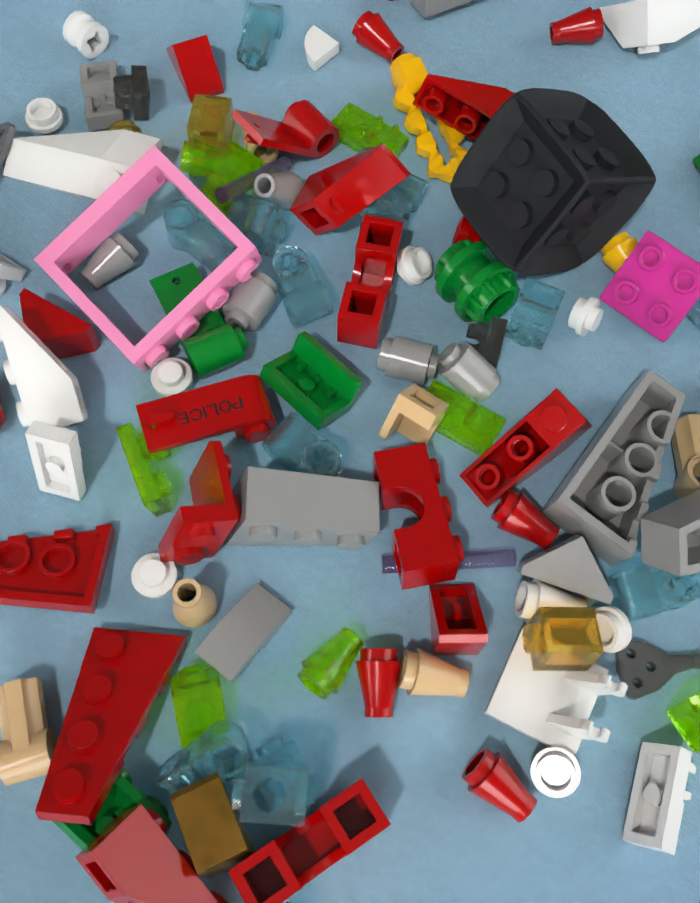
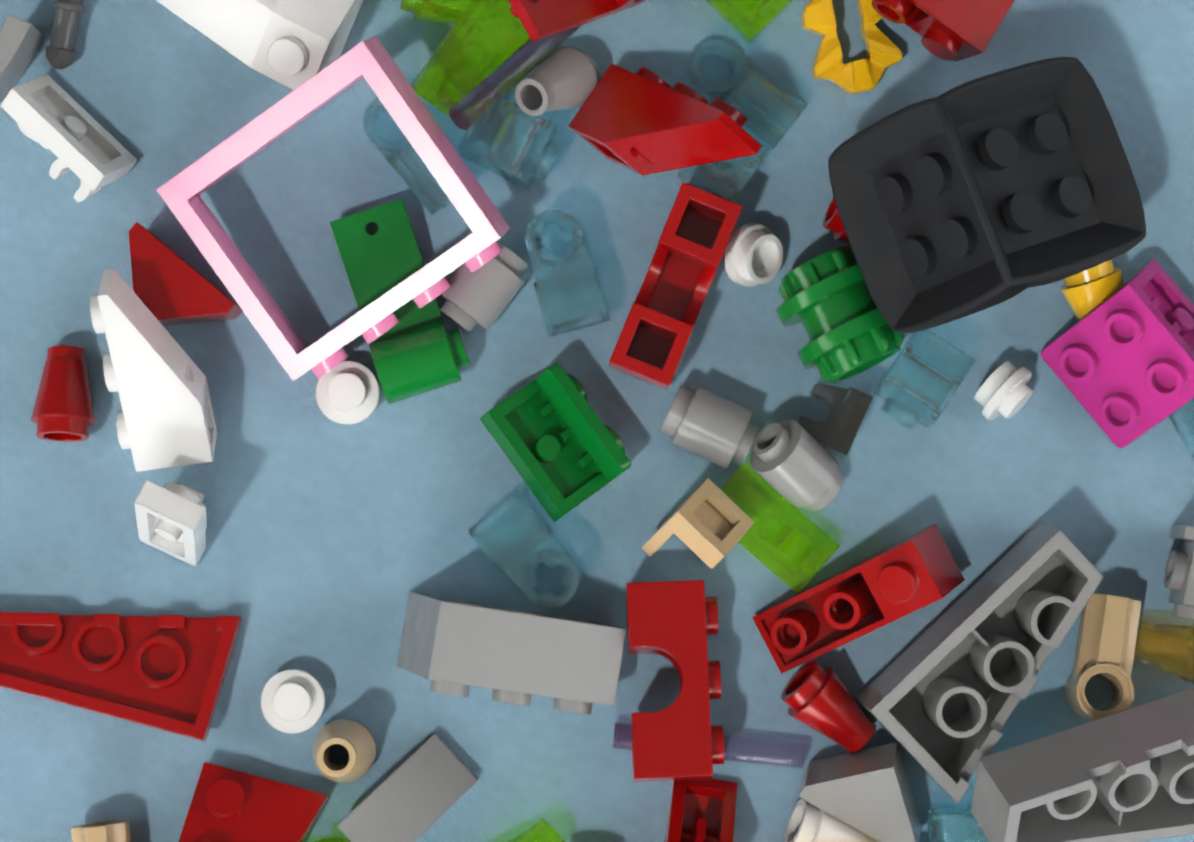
camera: 15 degrees right, 20 degrees up
(110, 260) = (270, 173): light grey cone -> none
(151, 484) = (301, 568): clear neon green plate -> none
(203, 527) = (388, 632): red bracket -> none
(207, 412) = (395, 477): red door -> none

